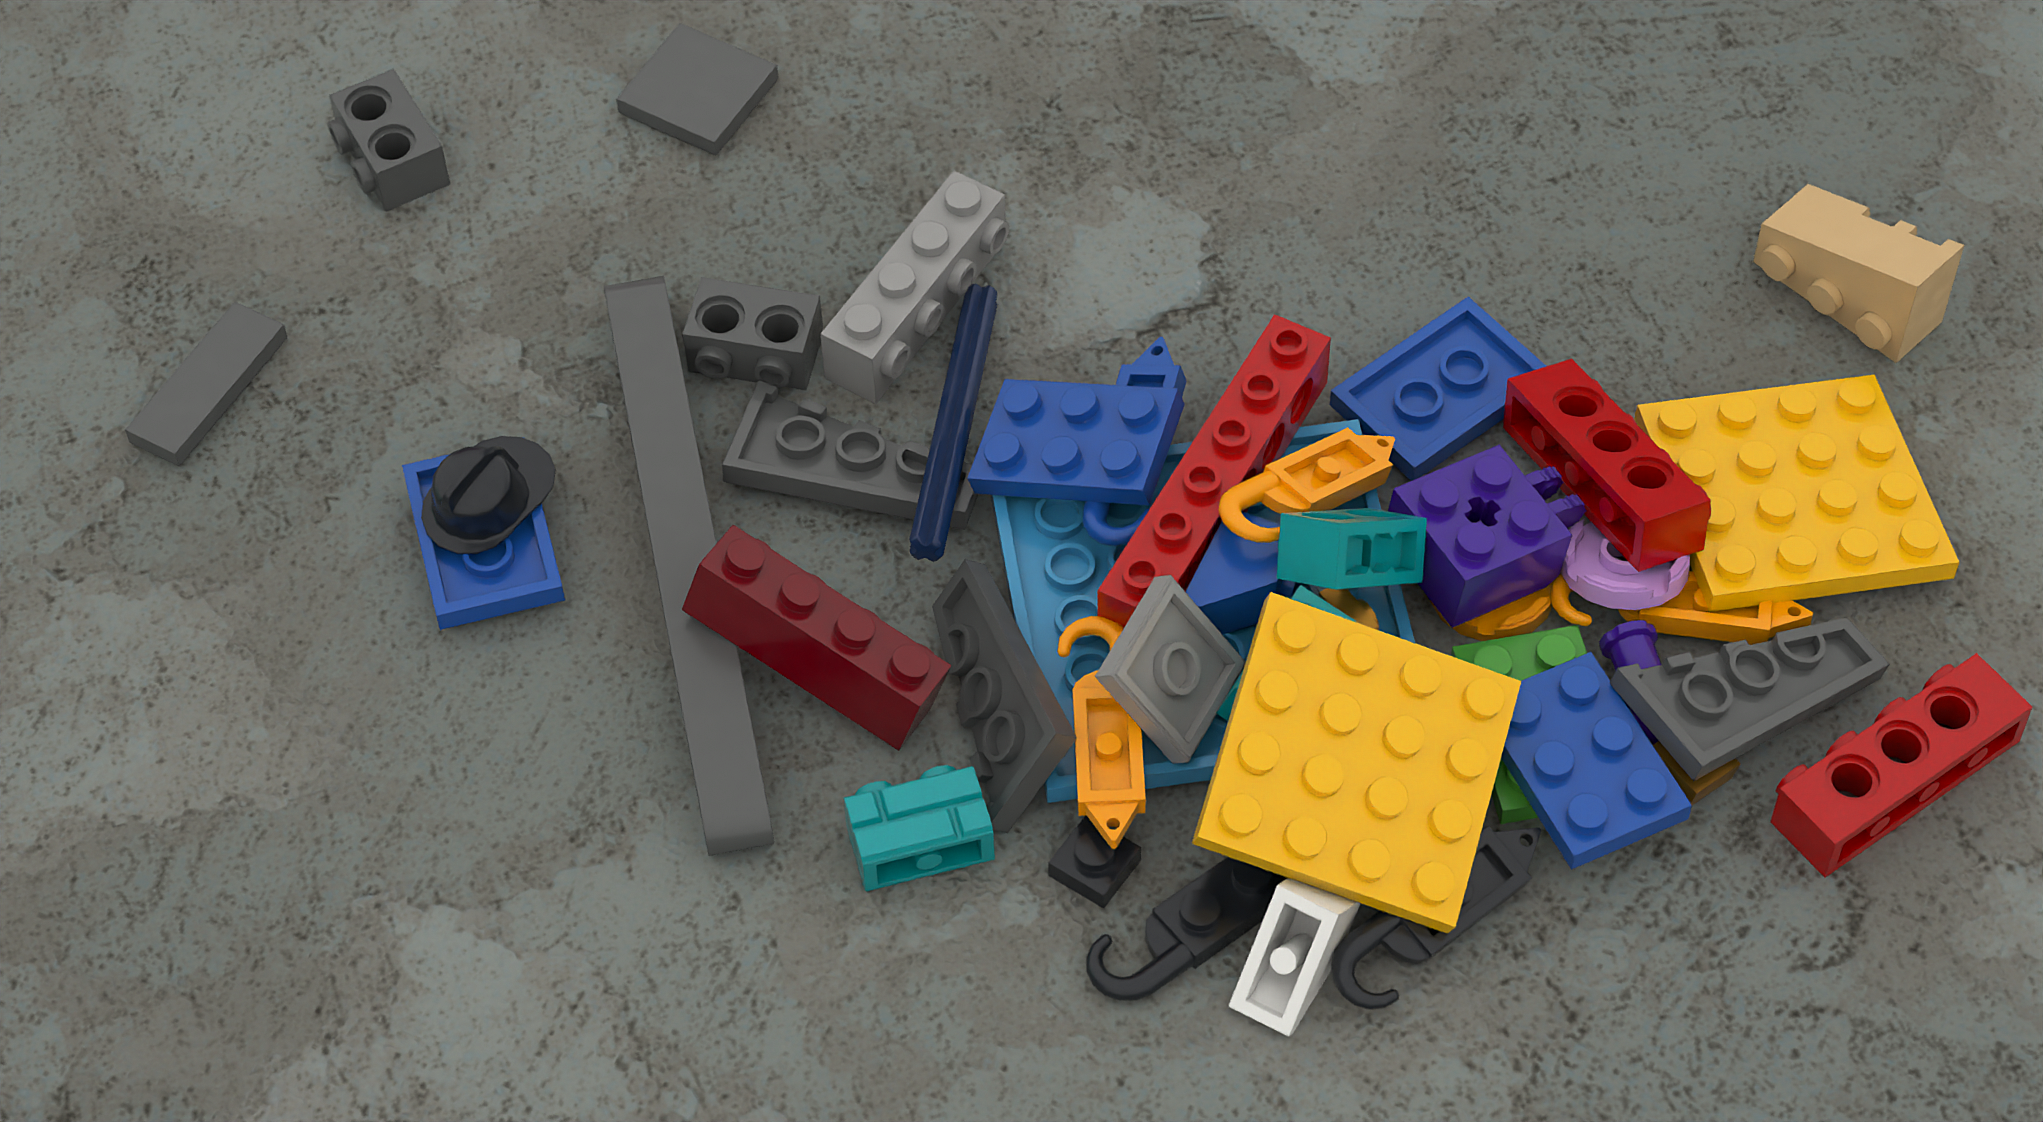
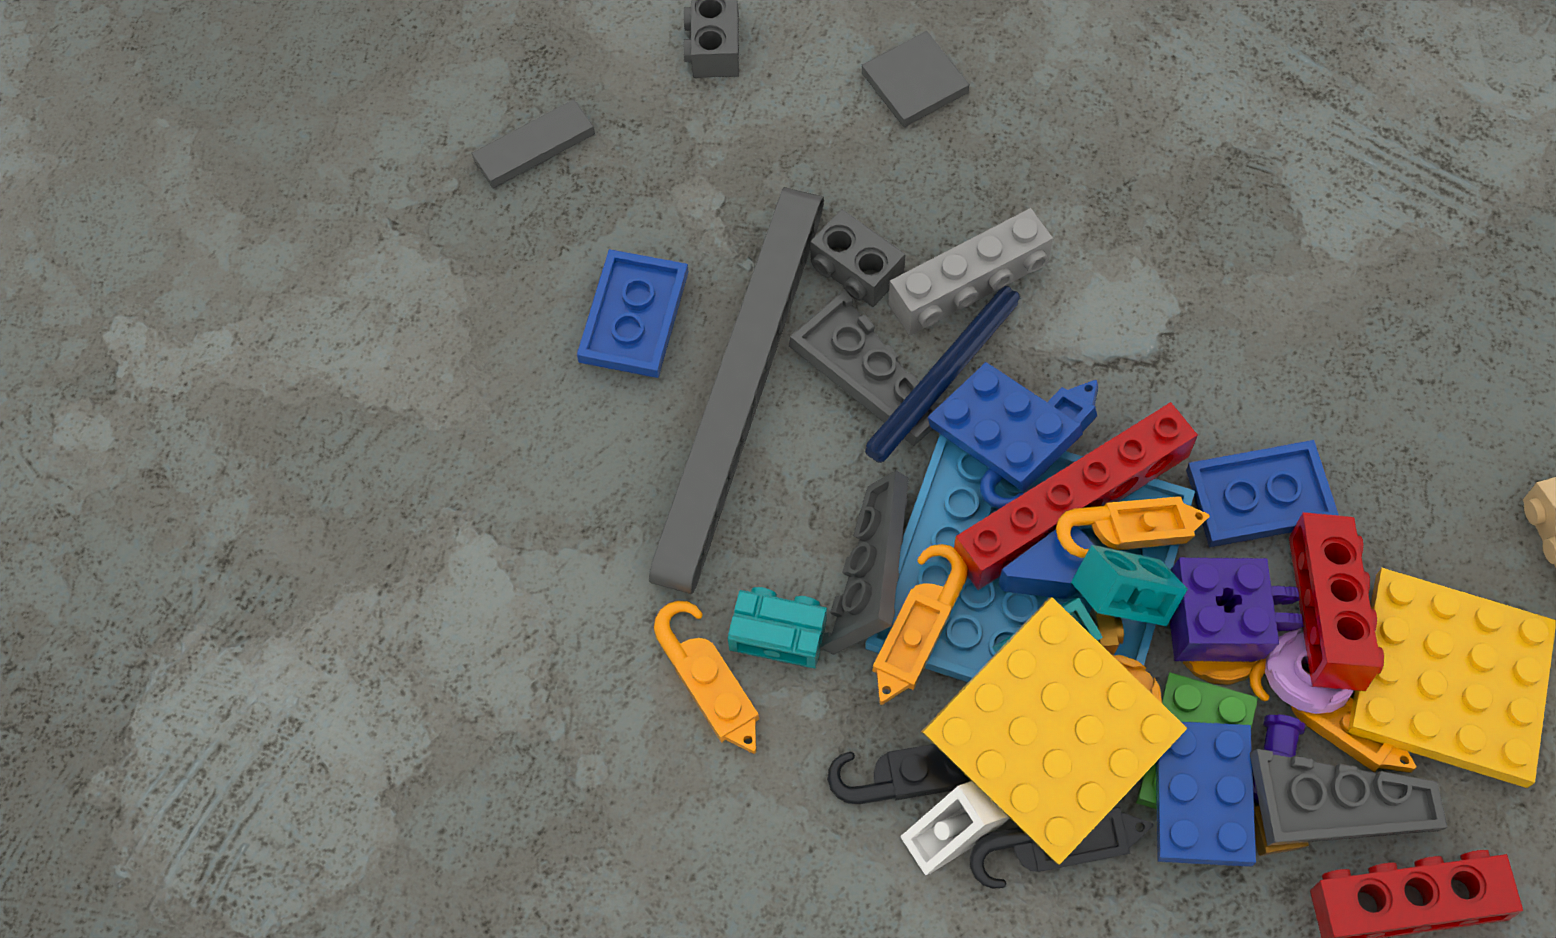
camera: 30 degrees right, 10 degrees up
(486, 493) = (645, 290): black piece -> none
(815, 637) = (779, 478): dark red brick -> none
(861, 939) = (708, 680): none -> light orange plate
(1091, 866) = (865, 706): black plate -> none
(1170, 669) = (974, 608): light grey tile -> none

